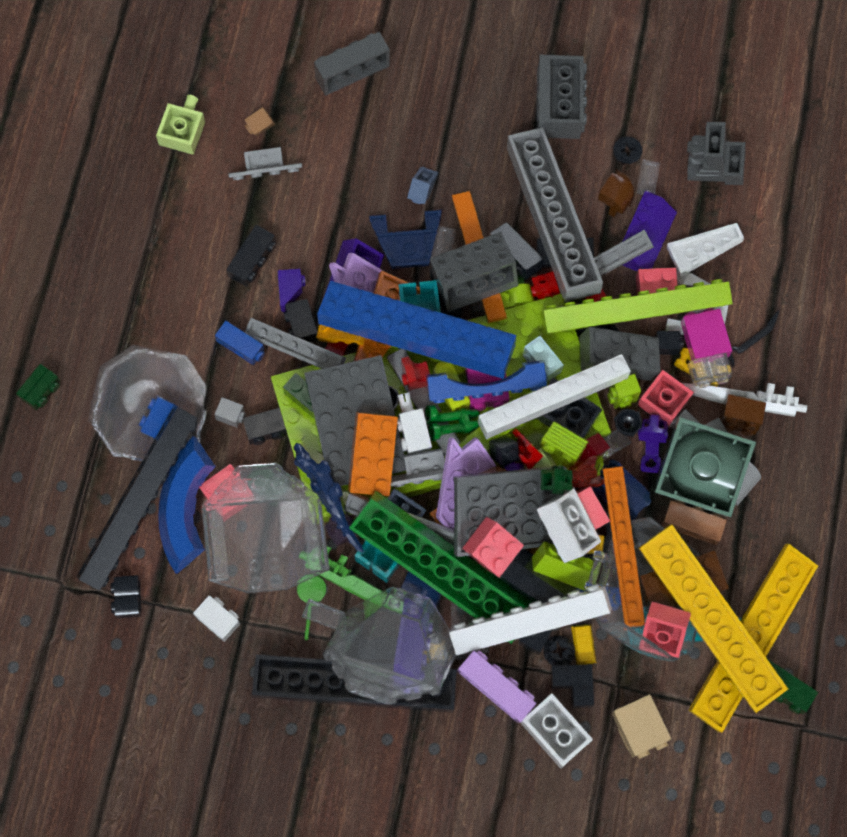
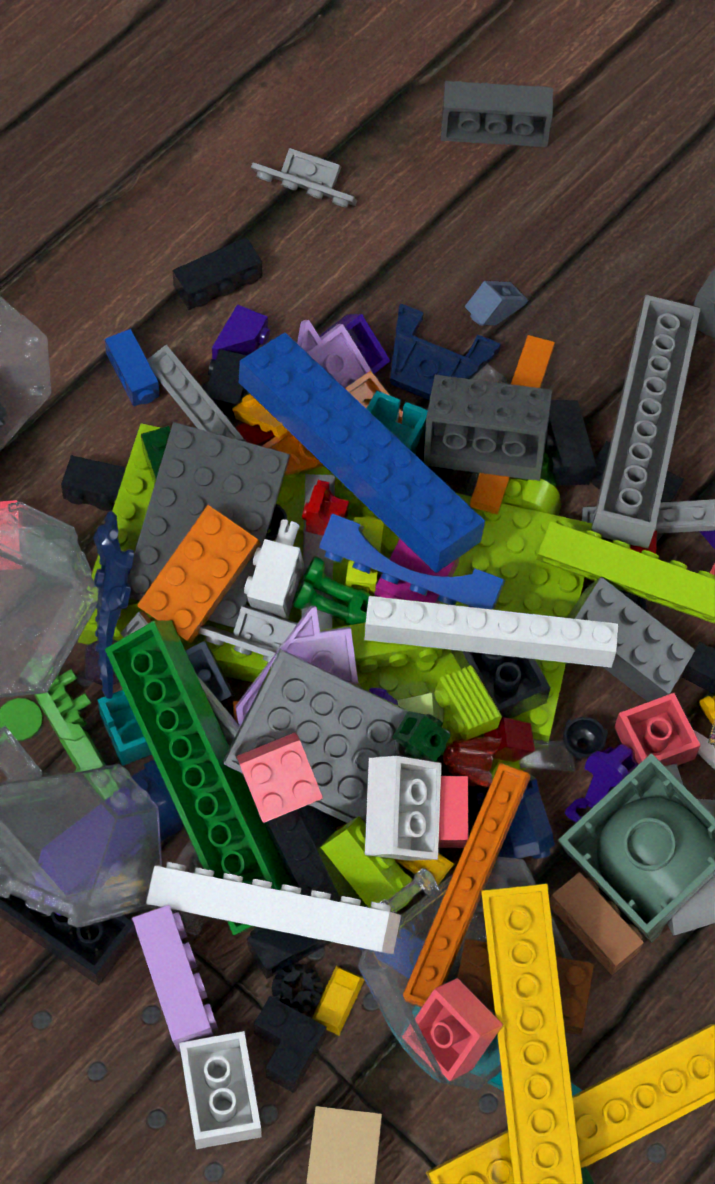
camera: 30 degrees right, 10 degrees down
(181, 126) = (231, 82): yellowish green brick -> none
(230, 412) = (61, 442): light grey brick -> none
(259, 122) = (333, 124): medium nougat brick -> none
(504, 450) = (380, 668): black brick -> none
(527, 451) = (410, 686): red hinge -> none
(539, 351) = (516, 592): light aqua brick -> none
(545, 286) = (577, 502): red brick -> none
(624, 393) = (602, 694): lime brick -> none

